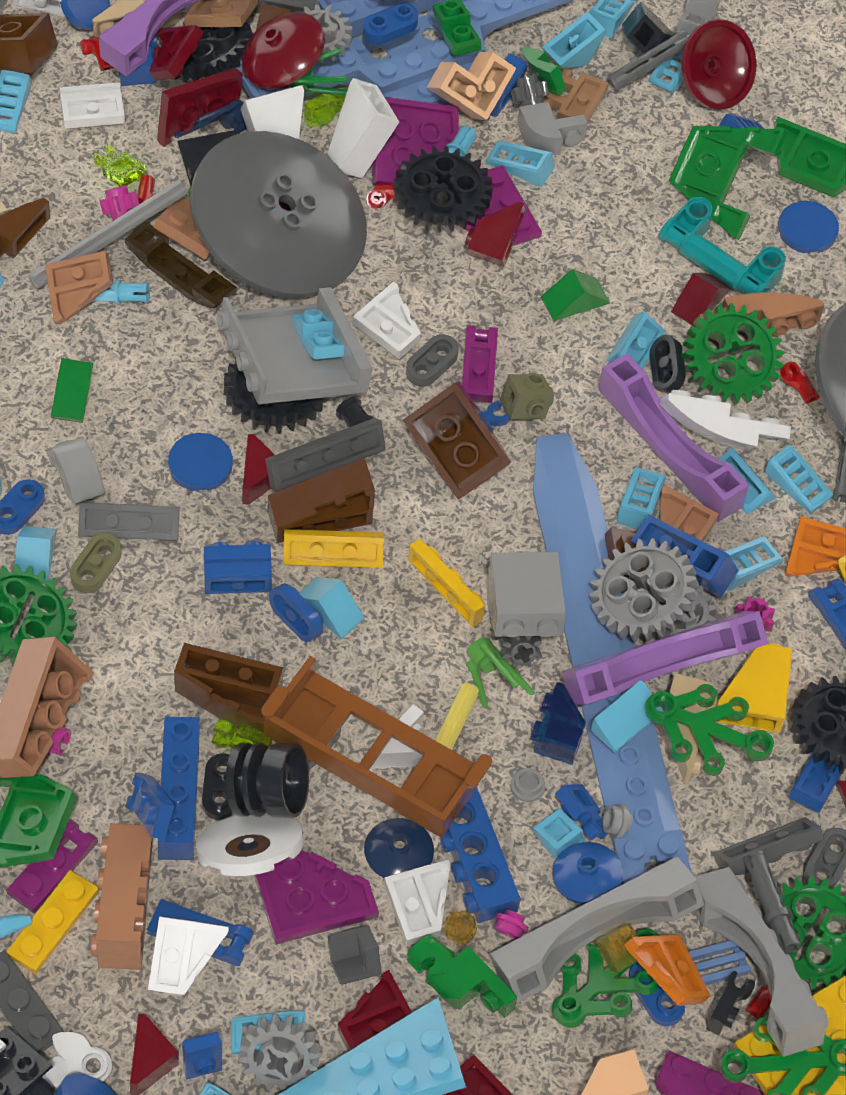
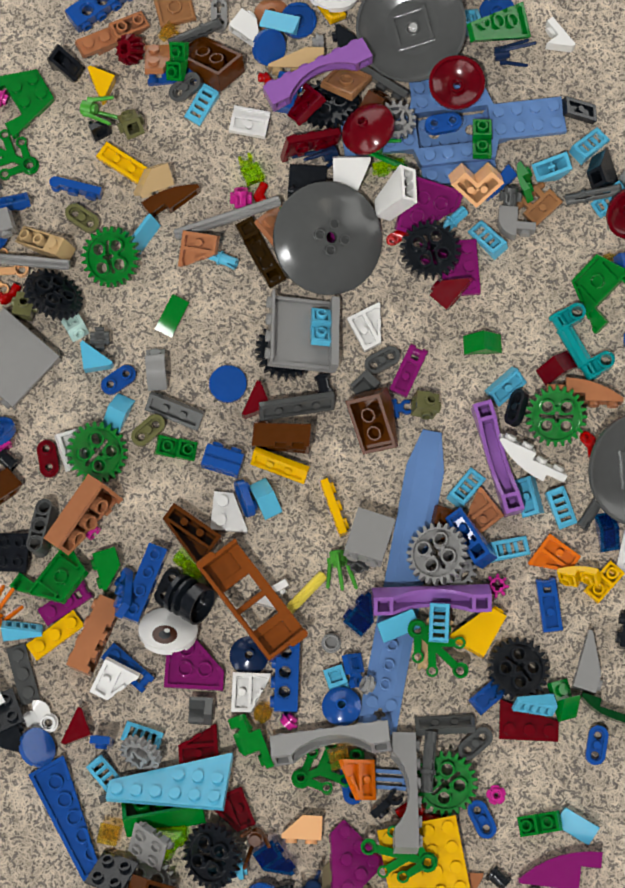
camera: 25 degrees right, 20 degrees up
(104, 782) = (107, 566): none -> green slope
(158, 576) = (175, 448): none -> green slope
(275, 643) = (226, 514): none -> white wing
(417, 393) = (364, 383): none -> dark grey panel
(693, 662) = (439, 607): none -> medium azure slope

